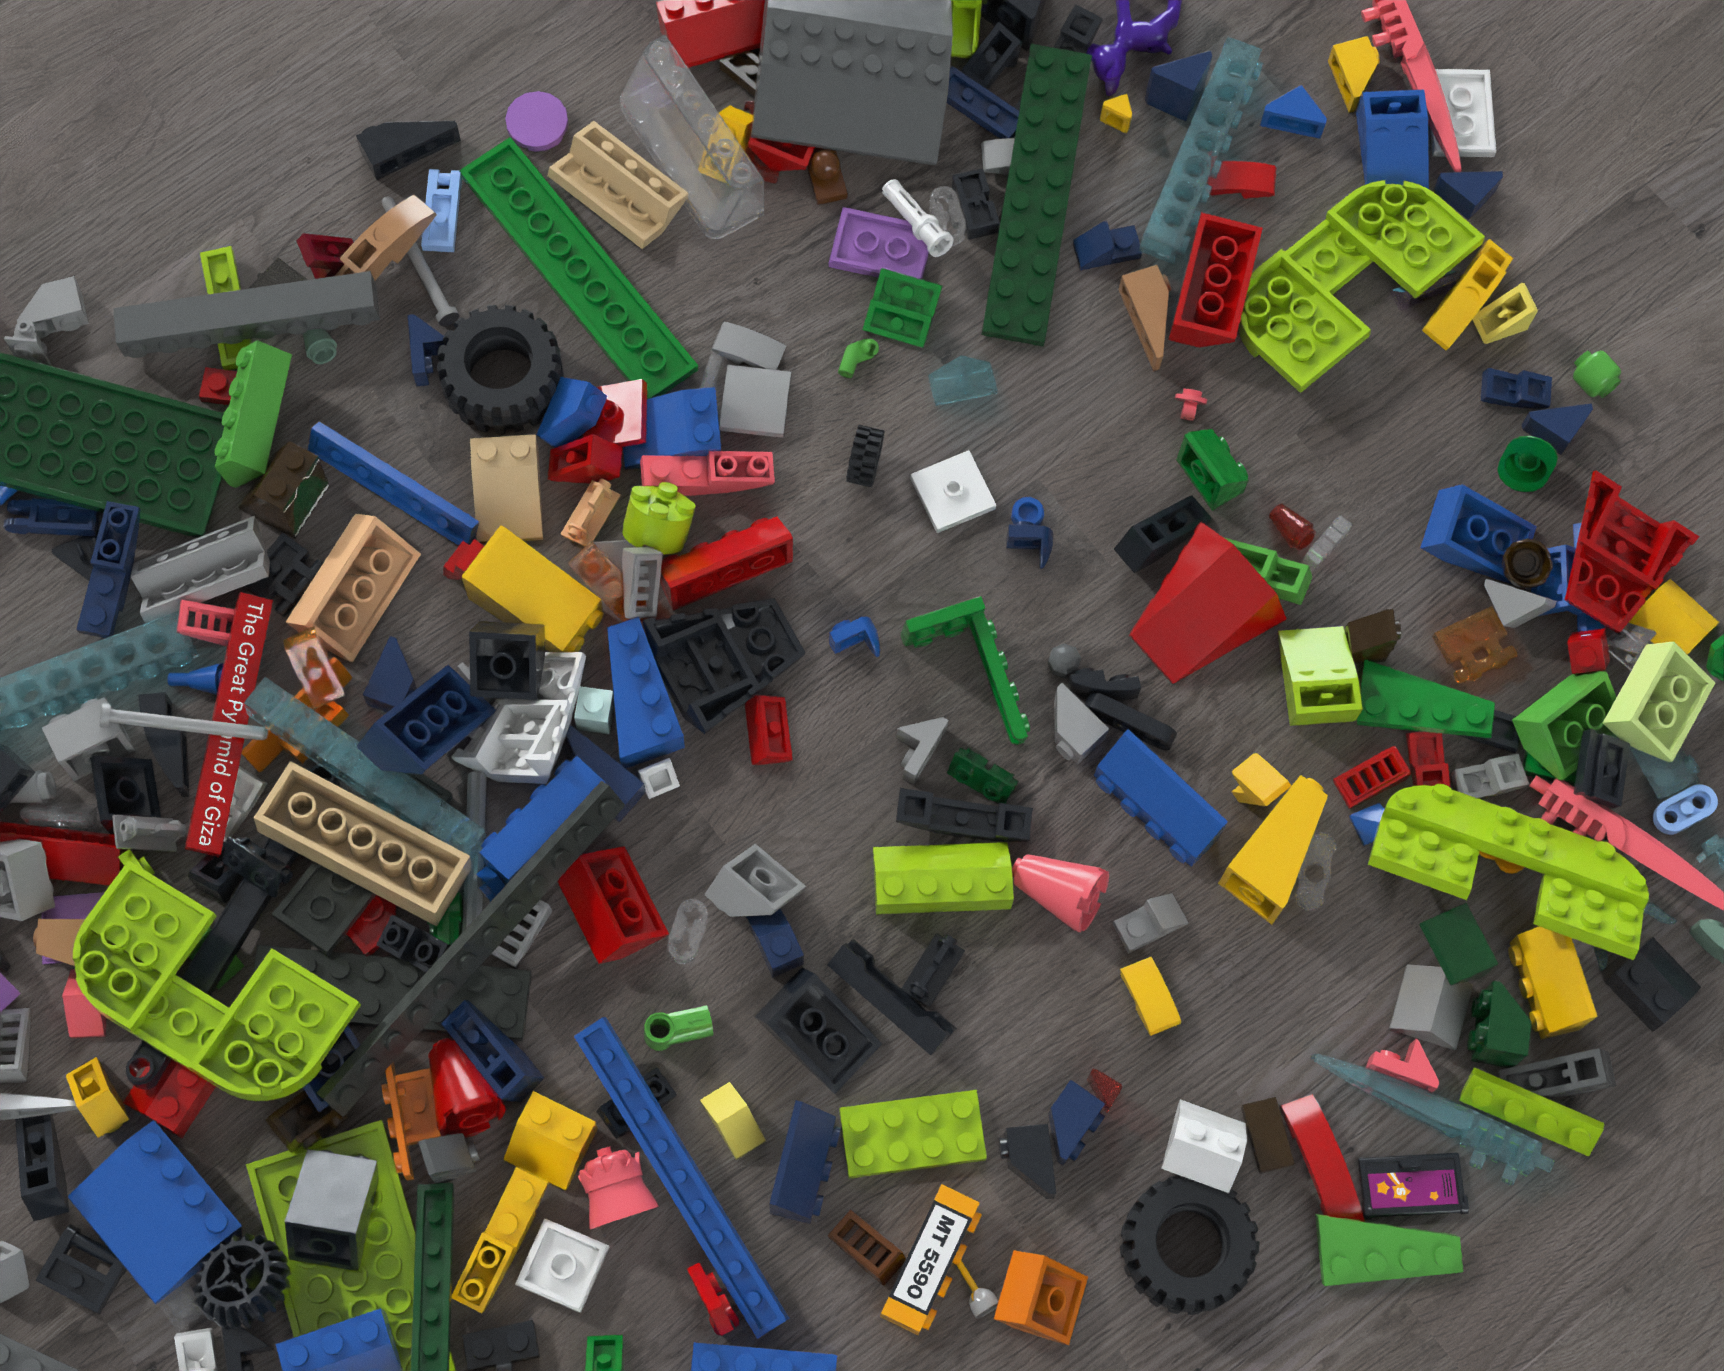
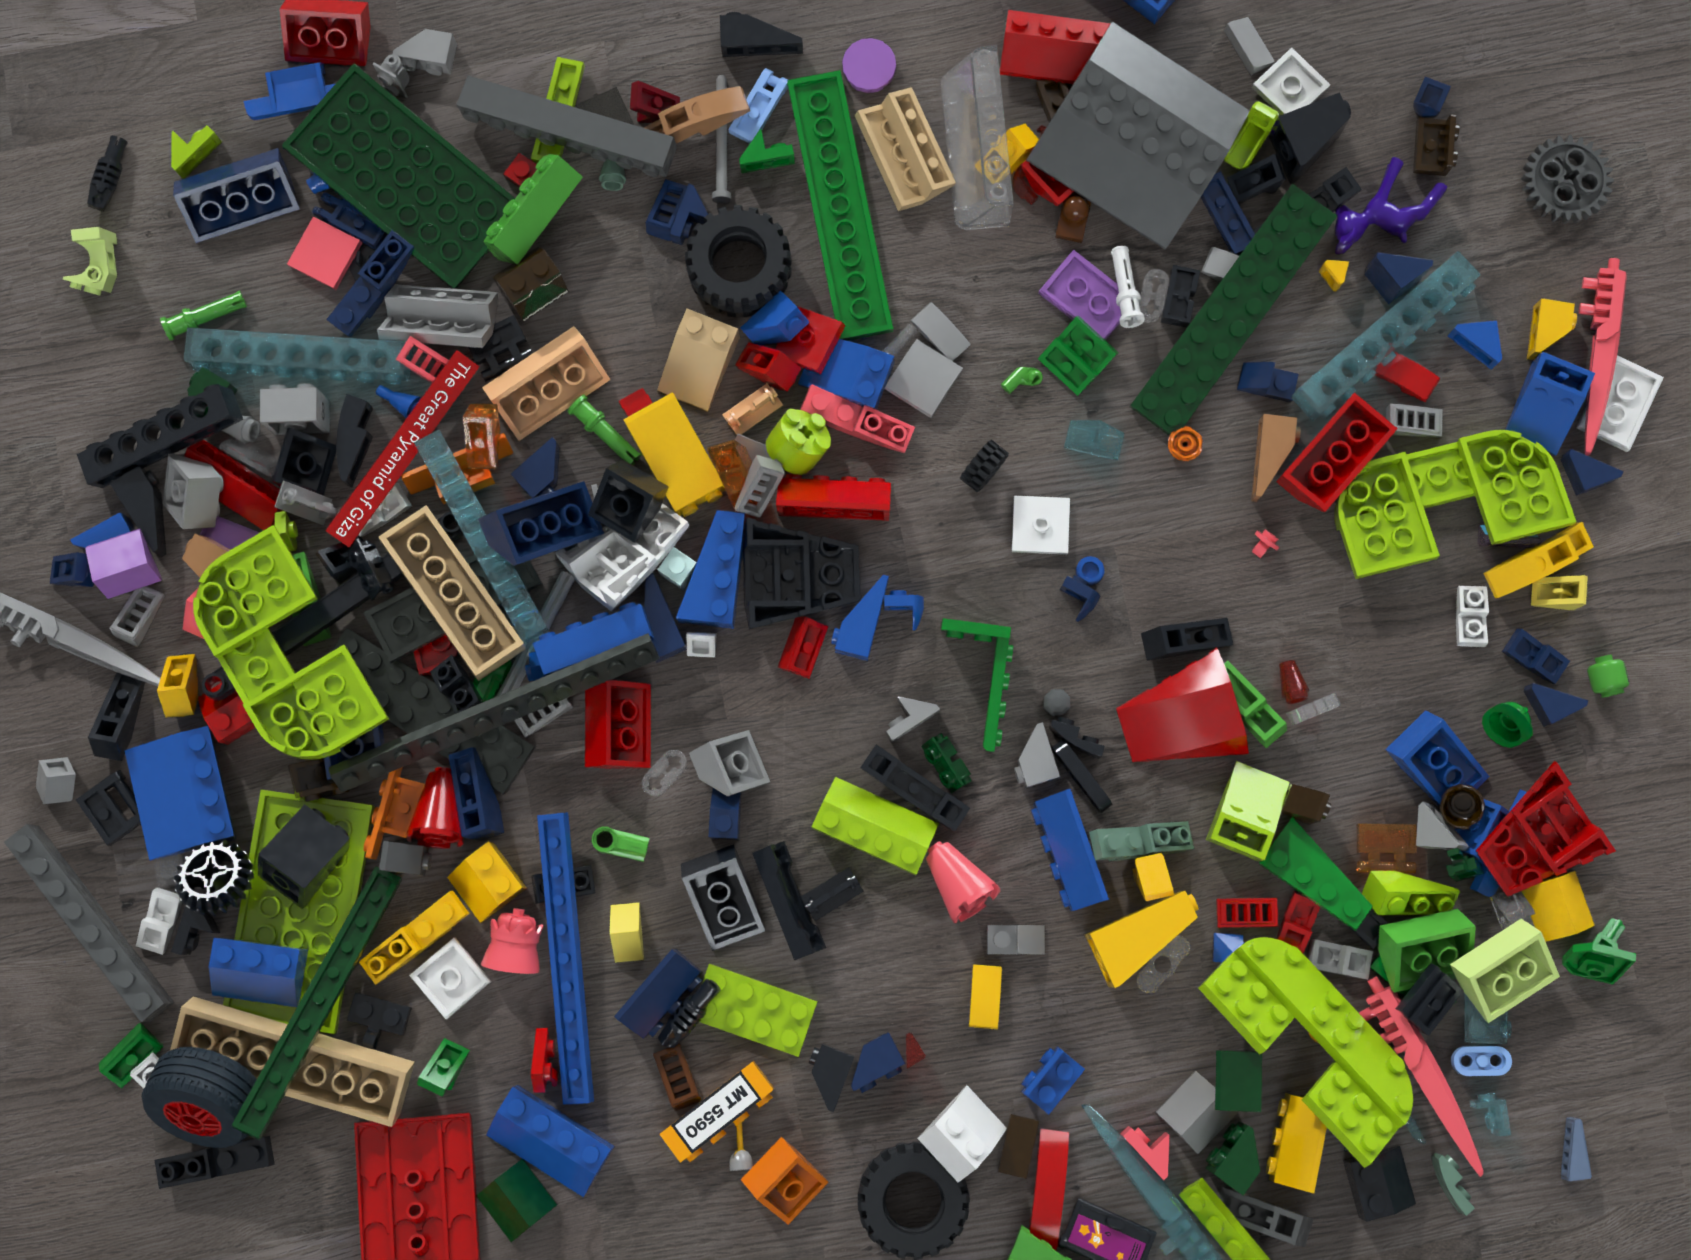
camera: 35 degrees right, 10 degrees up
(39, 564) = (324, 253): none -> coral tile
(180, 723) = (362, 434): light grey bar -> none
(392, 485) = (613, 316): blue plate -> none
(395, 374) = (659, 225): none -> dark blue slope
(426, 603) = (595, 422): none -> bright green pin
(470, 259) = (759, 158): none -> green slope
(819, 680) = (859, 626): none -> blue slope
(846, 1170) = (688, 1014): none -> black hinge
(1061, 335) = (1193, 440): none -> orange plate
(1211, 467) = (1253, 605): green slope -> none
(1218, 759) = (1141, 841): none -> sand green slope
(1260, 212) = (1393, 410): none -> light grey slope
(1265, 1048) = (1052, 1079): none -> blue bracket
(1431, 379) = (1471, 616): none -> white slope
(1521, 678) = (1407, 895): none -> lime slope
(1560, 623) = (1463, 866): none -> dark green plate
(1588, 651) = (1472, 900): red brick -> none

